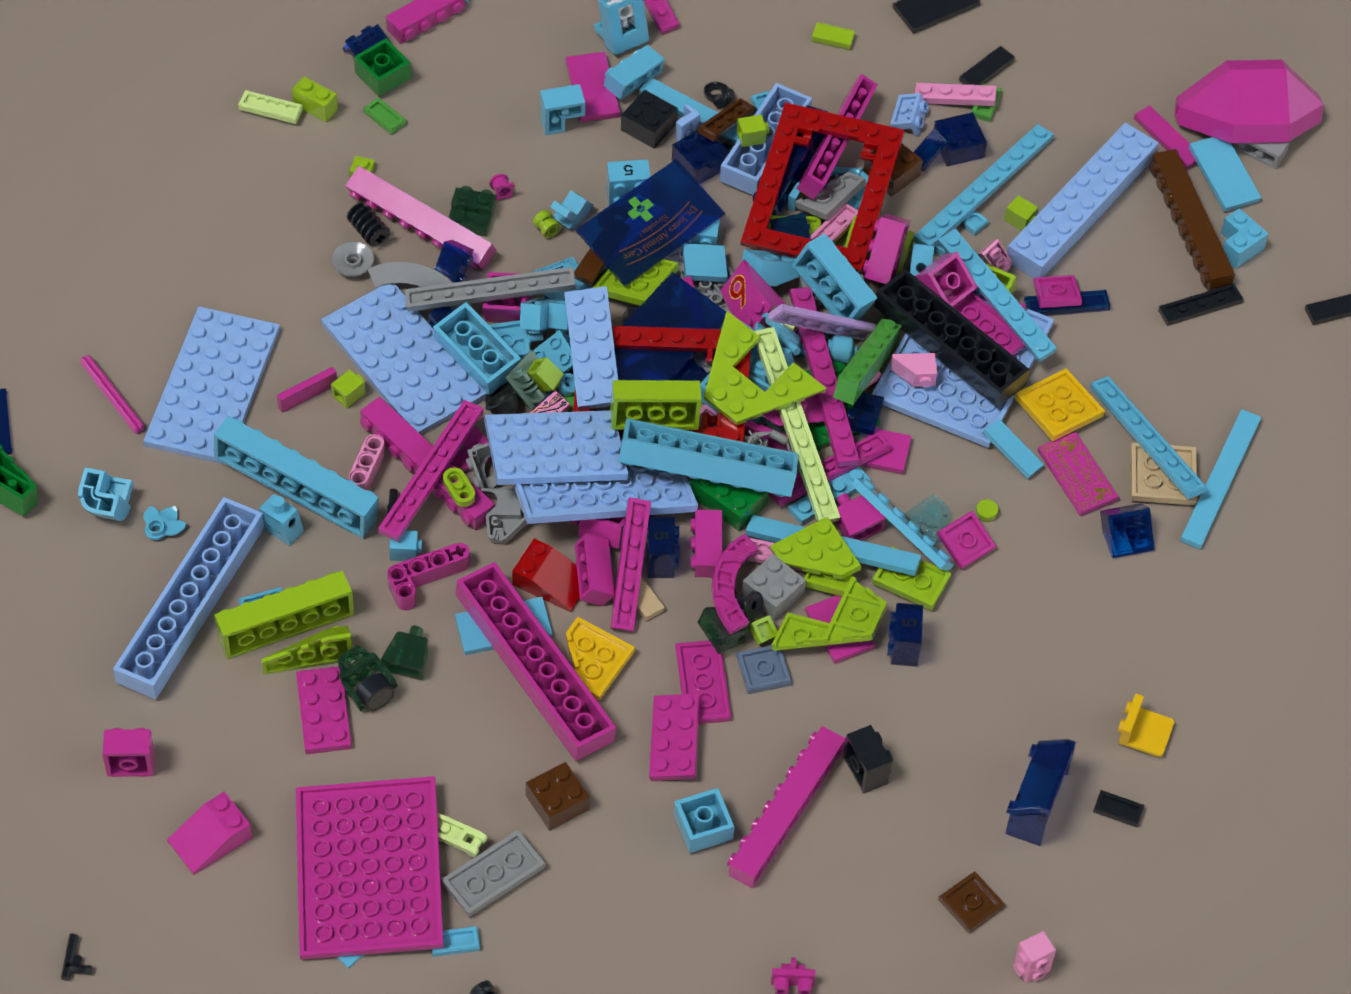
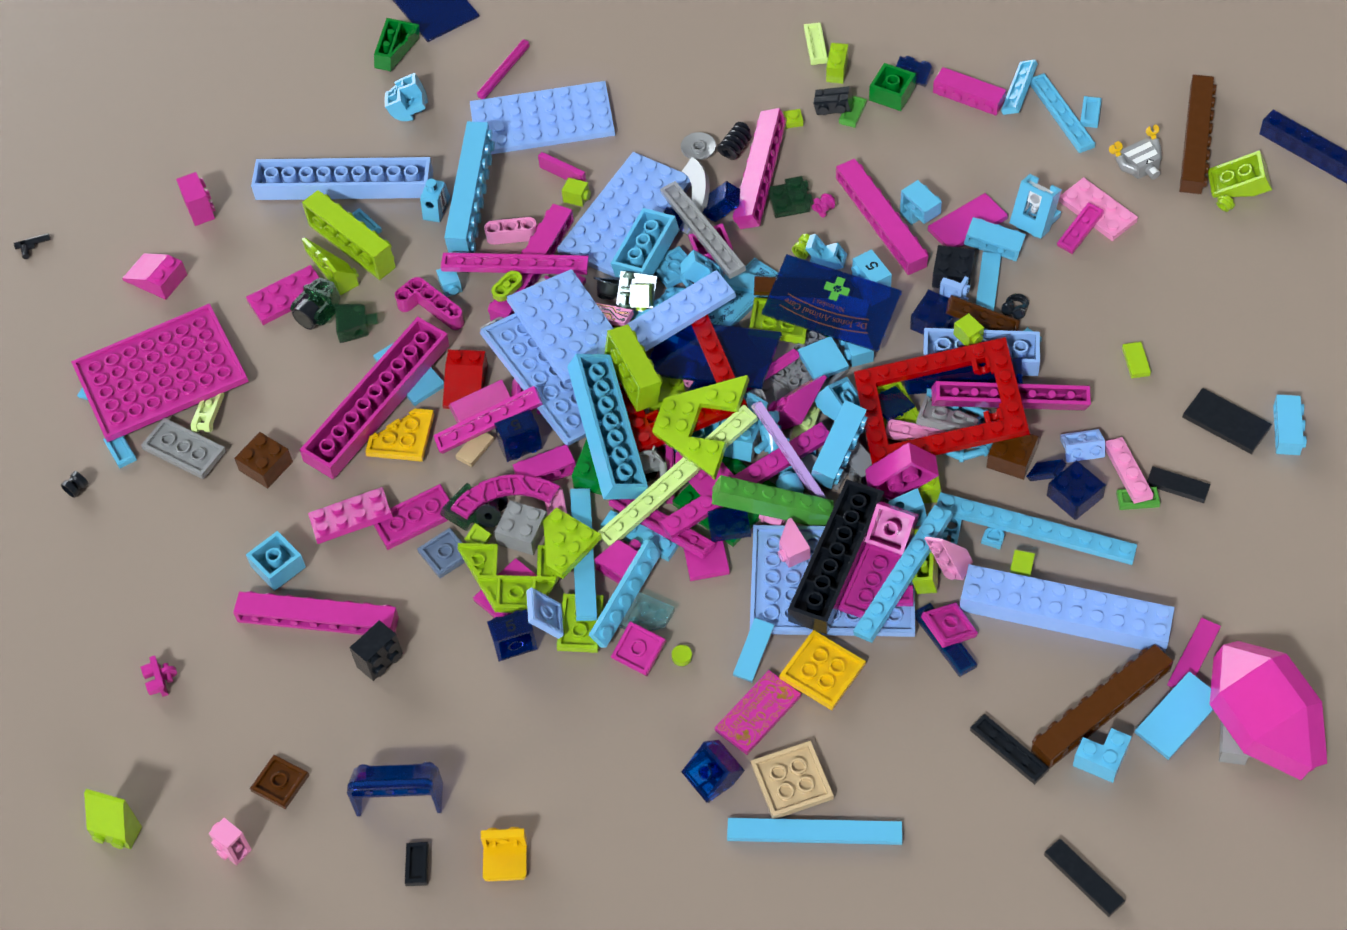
camera: 75 degrees right, 0 degrees up
(164, 521) = (405, 141): medium azure plate -> none
(368, 122) = (833, 100): none -> black brick
(545, 147) = (882, 216): none -> dark pink brick
(899, 594) = (544, 613): none -> light blue tile
(1148, 437) = (820, 752): medium azure tile -> none

